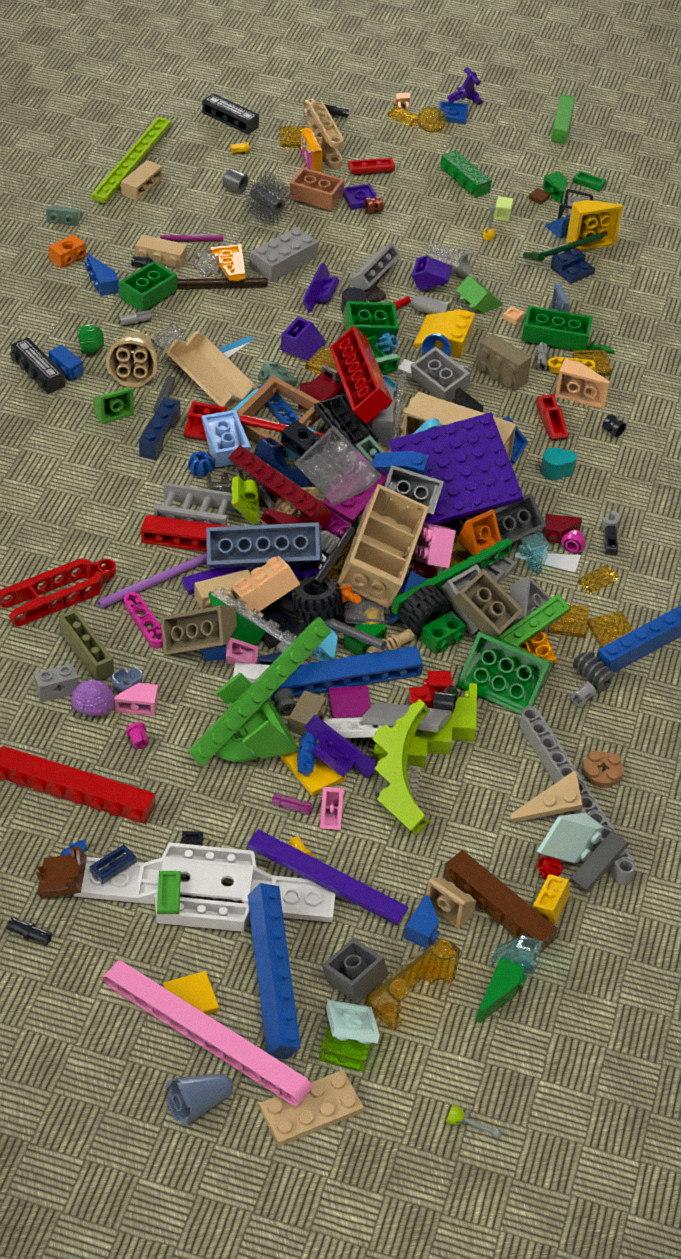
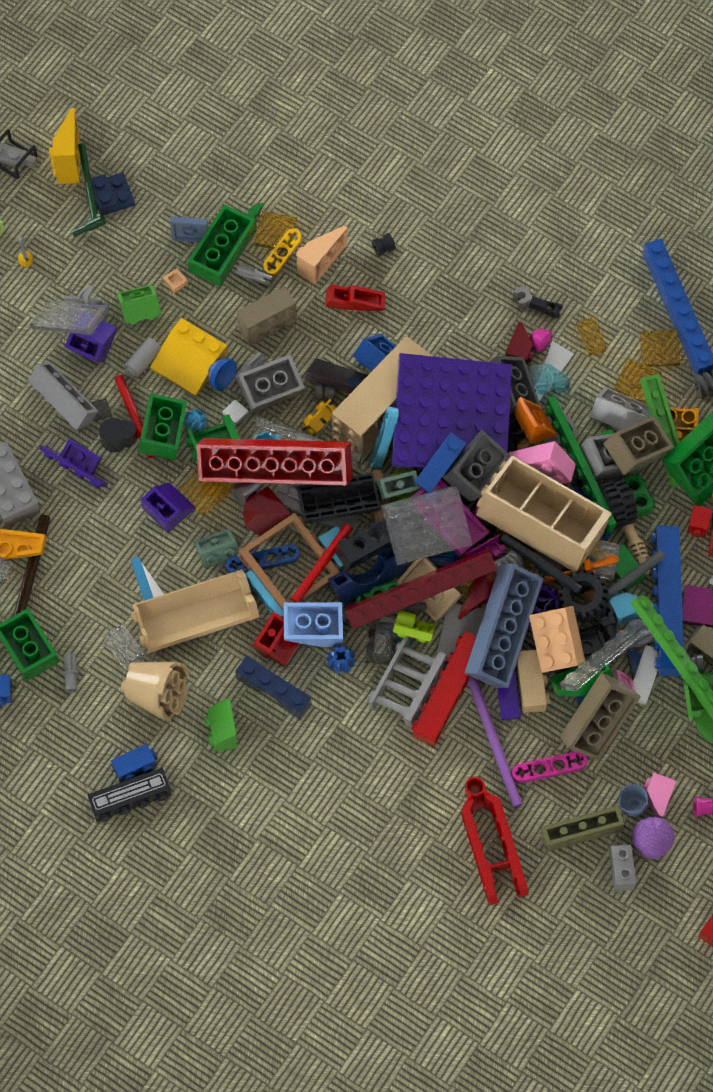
camera: 70 degrees left, 20 degrees up
(90, 338) = (106, 726): green hair -> none
(165, 391) = (211, 671): dark grey axle -> none
(558, 463) = (427, 317): teal piece -> none
(559, 227) = (36, 179): blue slope -> none

